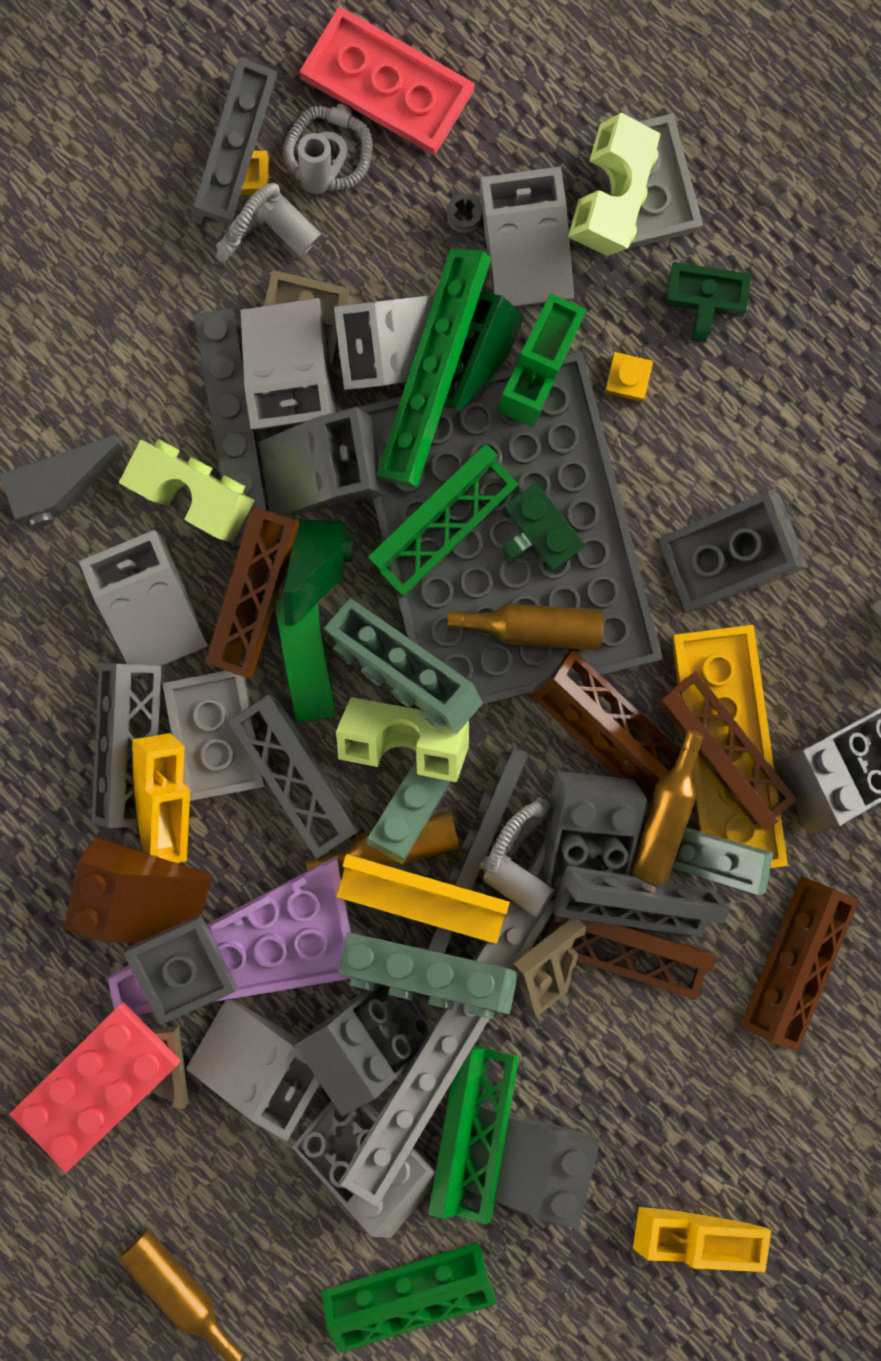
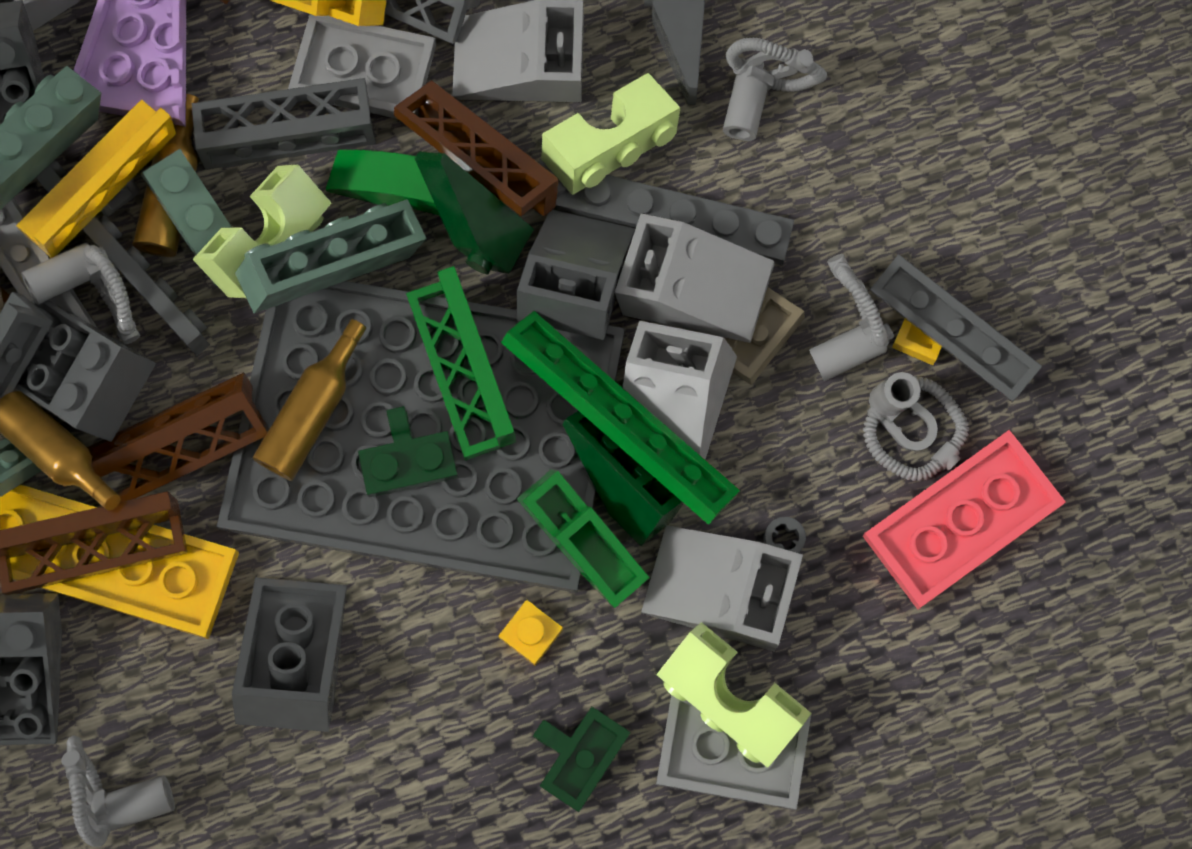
camera: 115 degrees right, 10 degrees down
(92, 399) = (754, 81): none -> light grey piece

